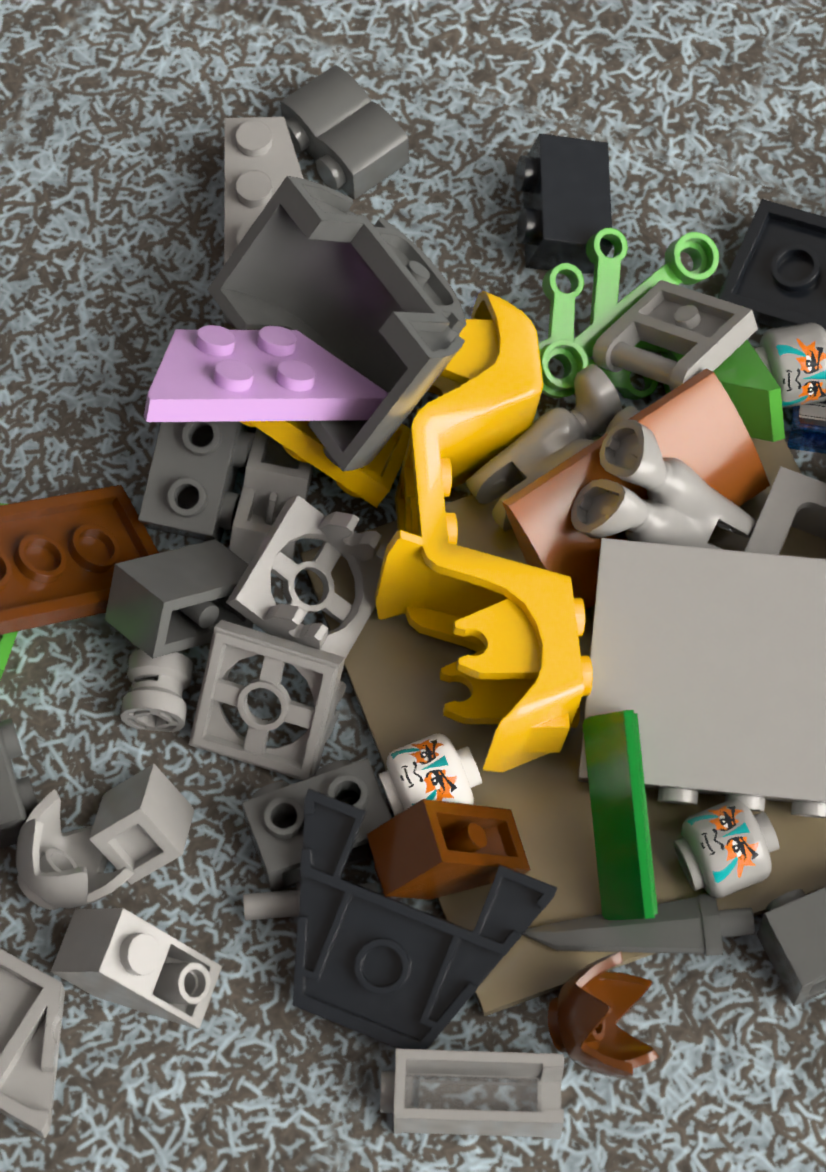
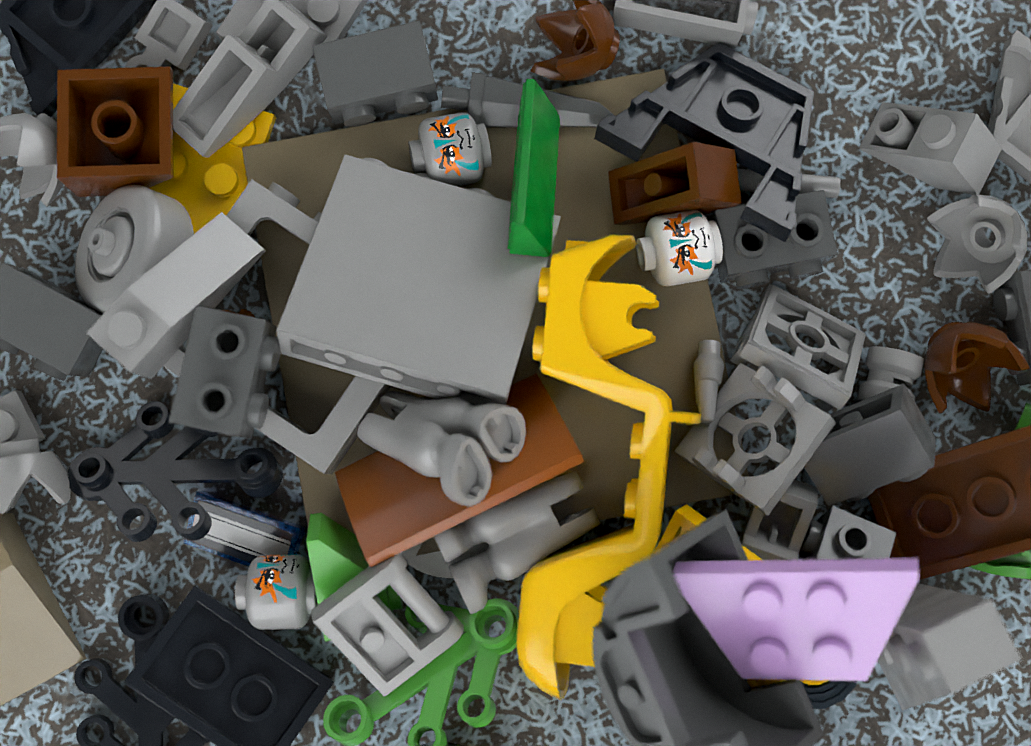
camera: 170 degrees left, 20 degrees up
(71, 727) = (962, 360): none -> reddish brown piece
(99, 390) = (944, 645): none -> light grey wedge
(142, 823) = (913, 266): light grey panel -> none
(371, 653) = (707, 378): none -> light grey piece

